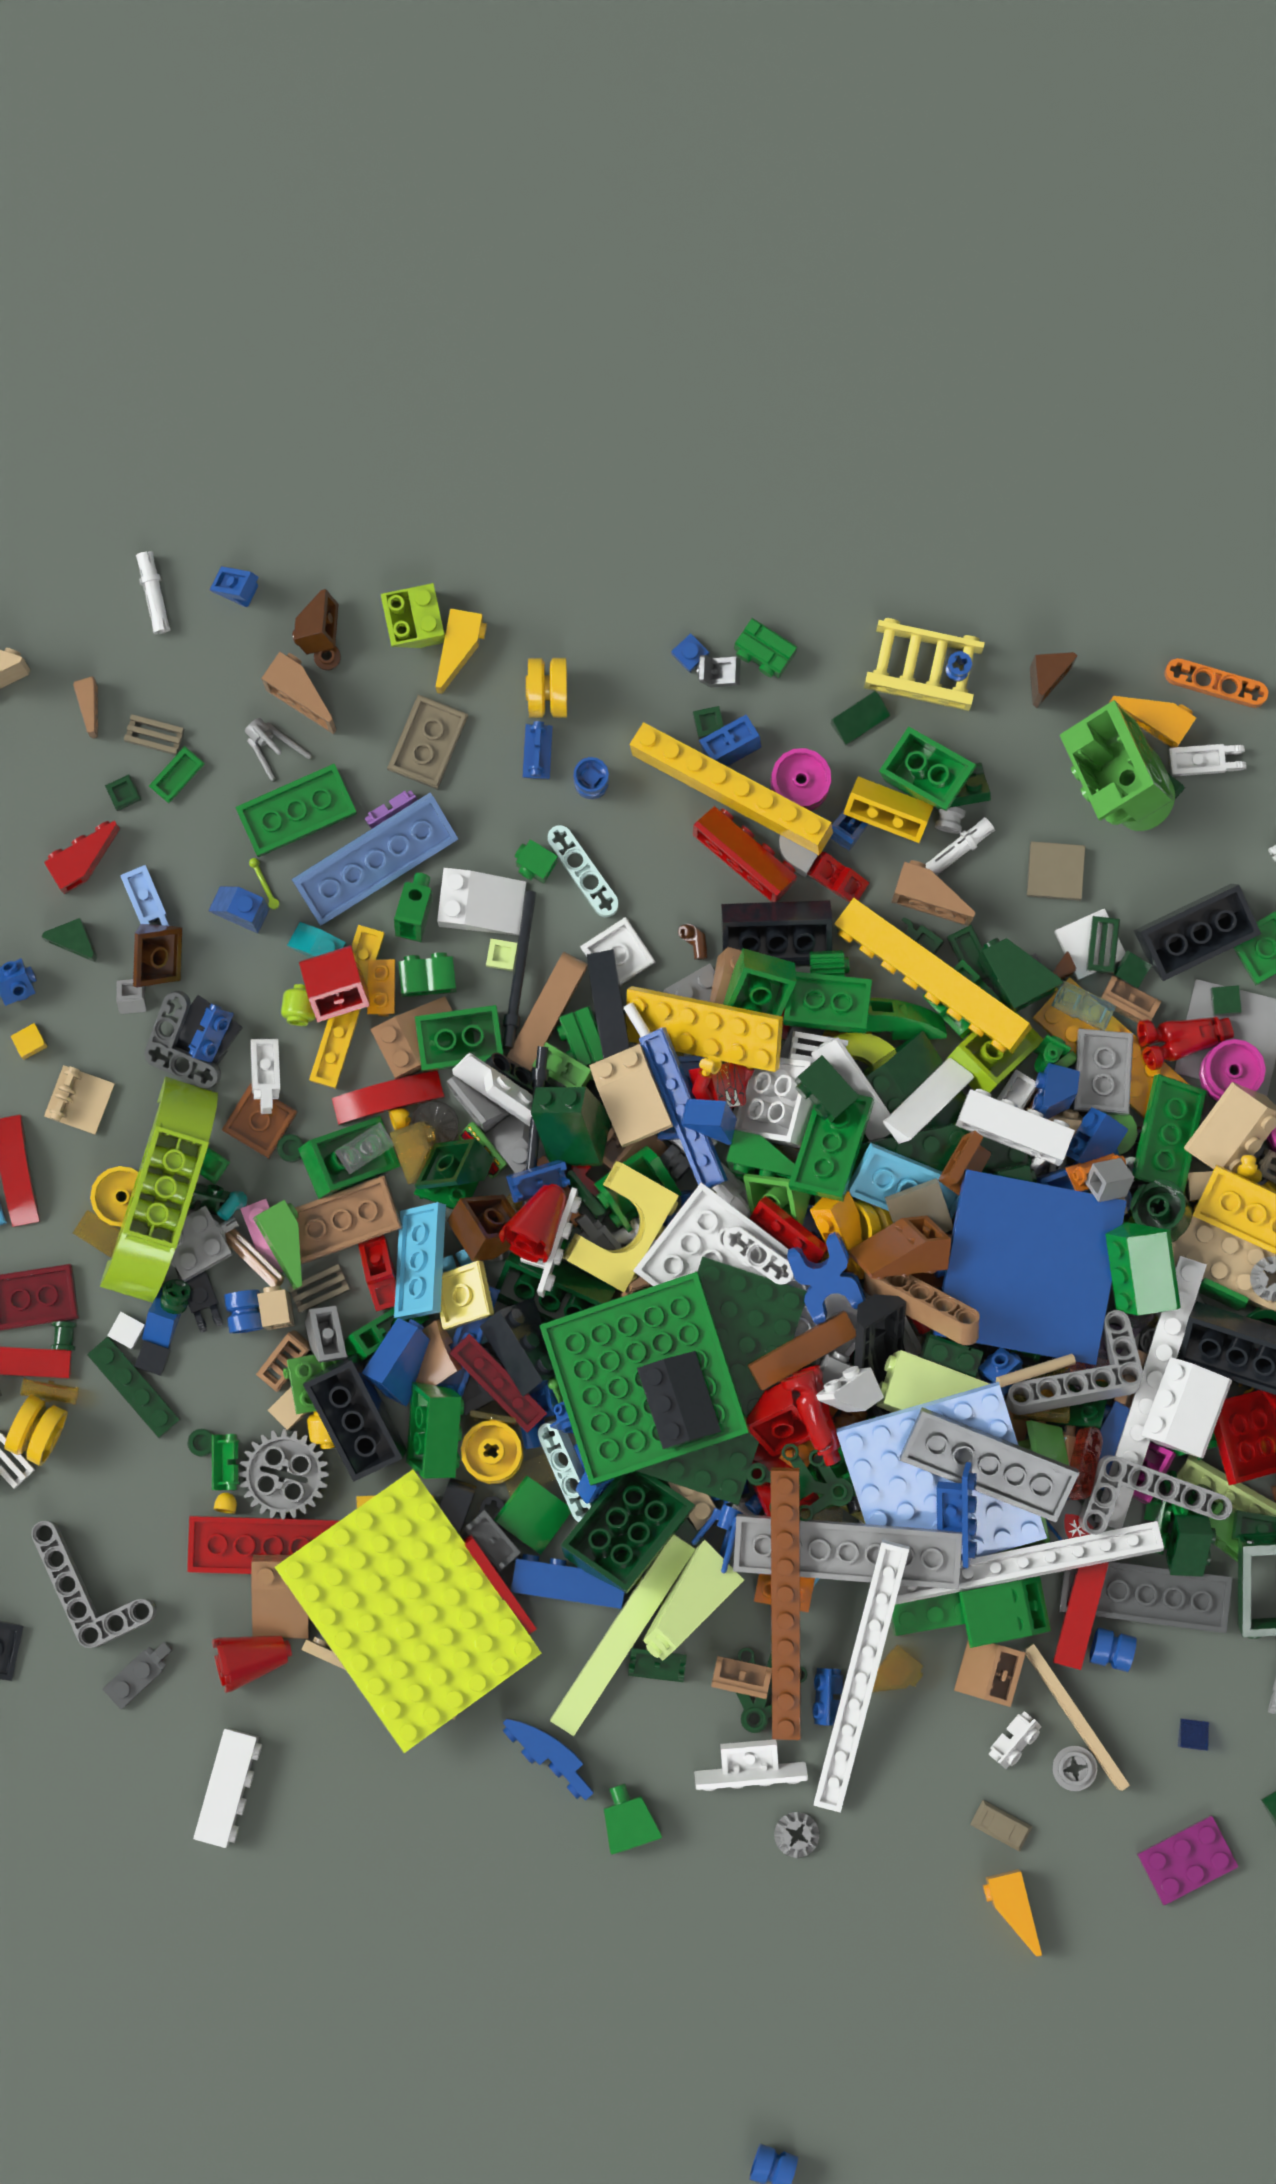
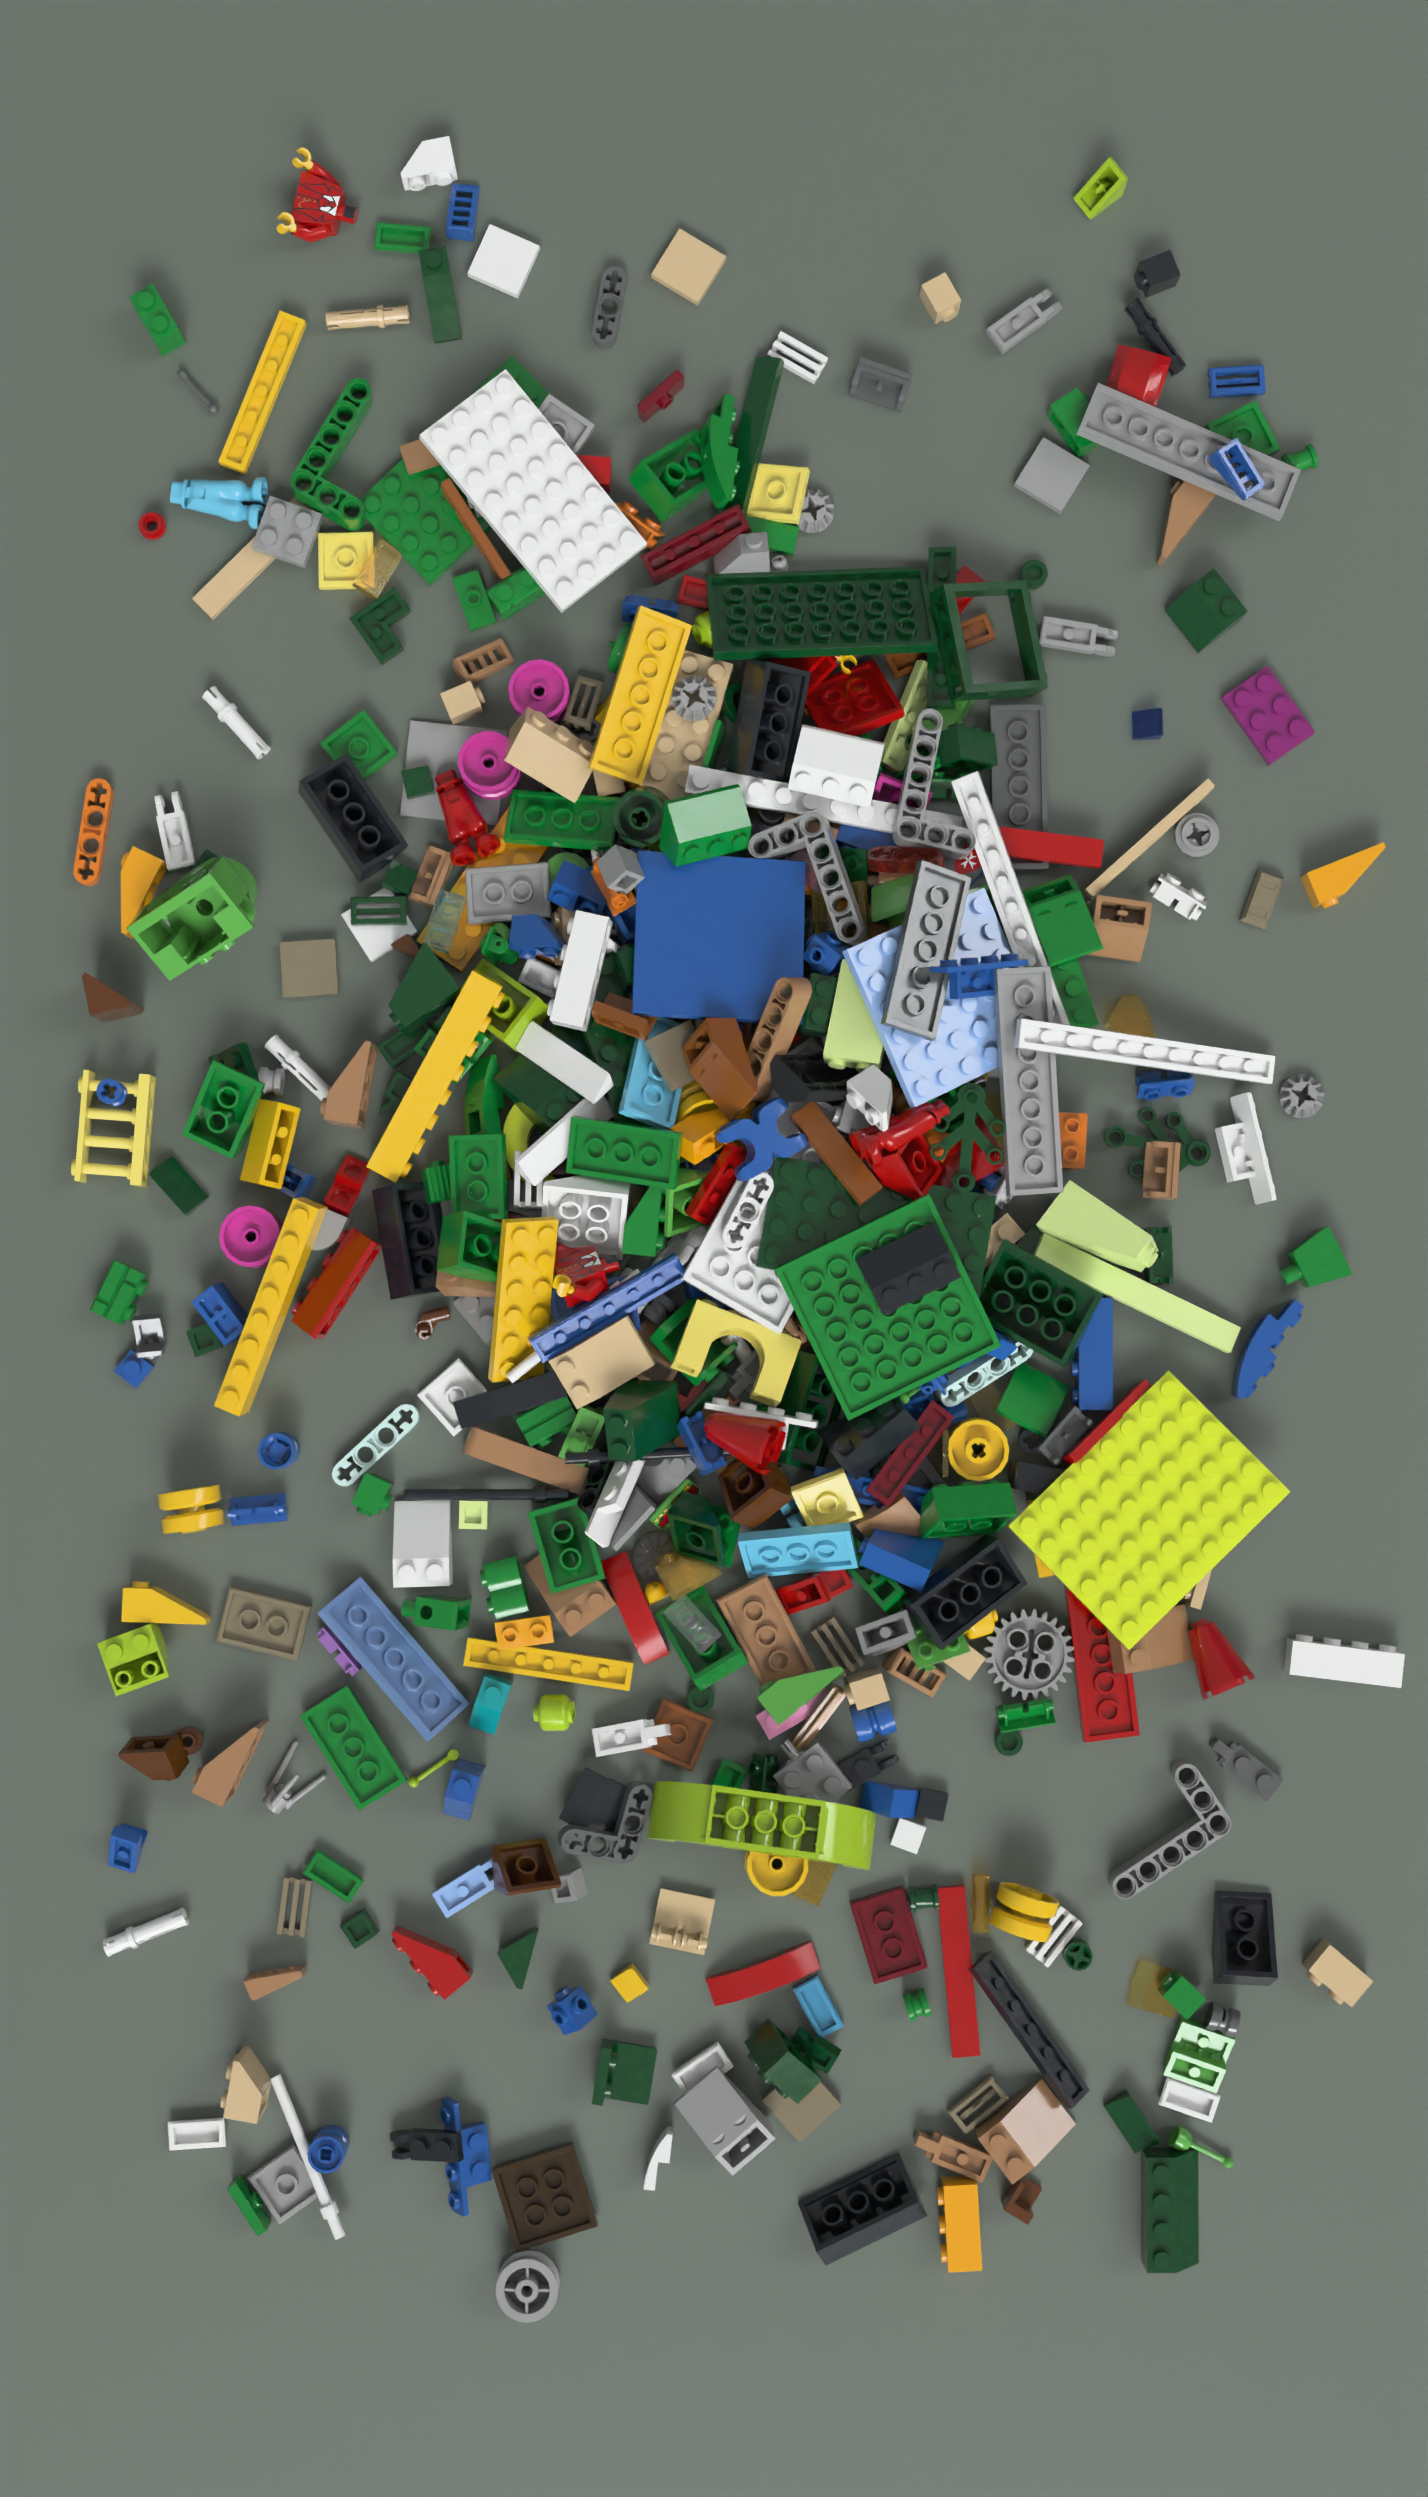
camera: 100 degrees left, 5 degrees up
(133, 1387) = (963, 1818): dark green plate -> none
(175, 1296) = (864, 1787): dark green wheel -> none
(206, 1042) = (607, 1801): blue hinge -> none
(225, 1503) = (1065, 1707): yellow hinge -> none
(235, 1201) = (762, 1745): teal arm -> none
(334, 983) = (529, 1680): red slope -> none
(710, 1119) = (616, 1278): blue slope -> none
(727, 1521) = (1012, 1205): blue plant -> none
(785, 1603) = (1085, 1135): dark orange plate -> none
(825, 1089) = (571, 1164): dark green brick -> none
(1036, 1370) = (822, 918): tan bar -> none
(1111, 1649) = (1078, 809): blue wheel -> none
(1249, 1168) = (587, 735): yellow arm -> none

